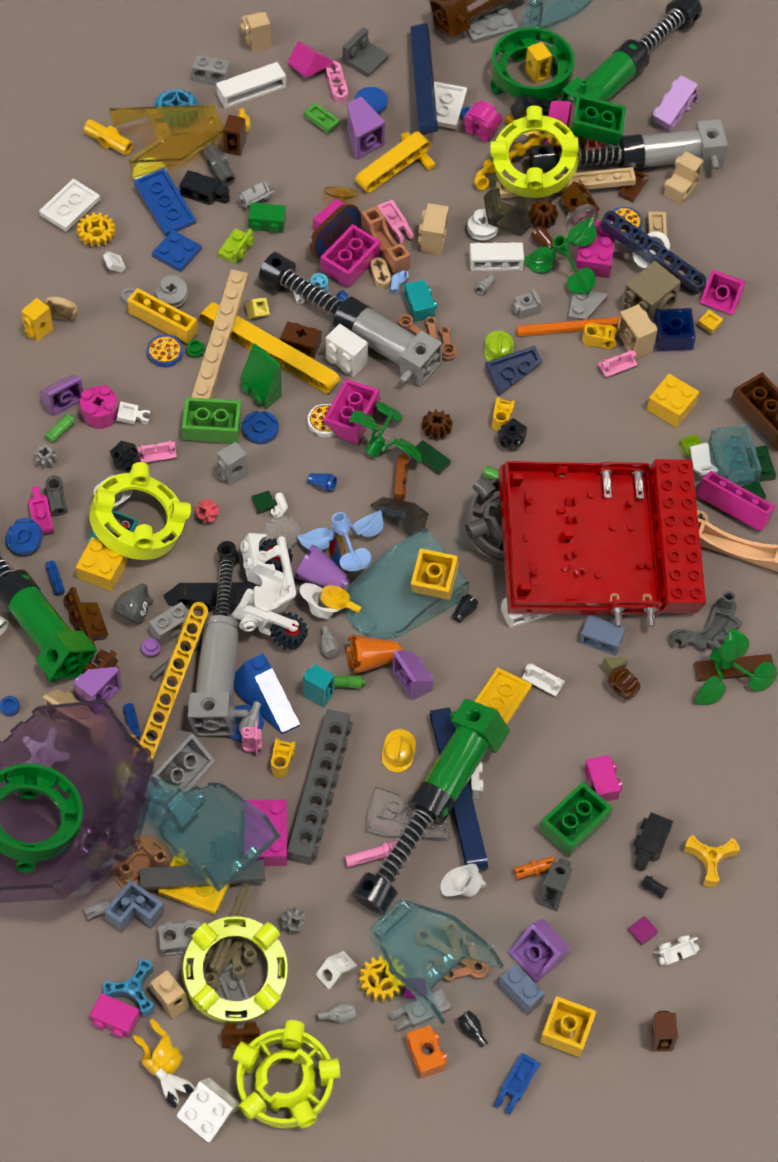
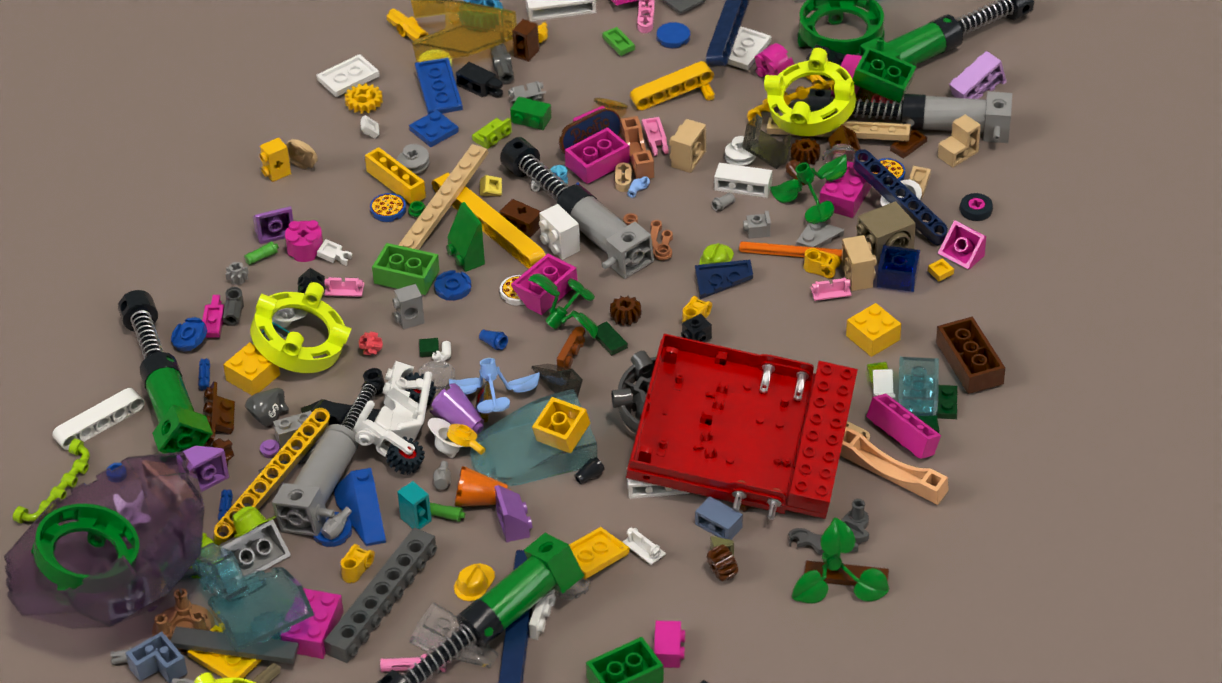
camera: 20 degrees right, 15 degrees down
(171, 740) = (247, 519): none -> lime piece
(252, 739) = (330, 538): bright pink hinge -> none
(364, 128) = (654, 53): medium lavender slope -> none
(419, 300) = (651, 204): teal brick -> none
(538, 62) = (849, 22): yellow brick -> none
(717, 252) = (979, 213): none -> black bush

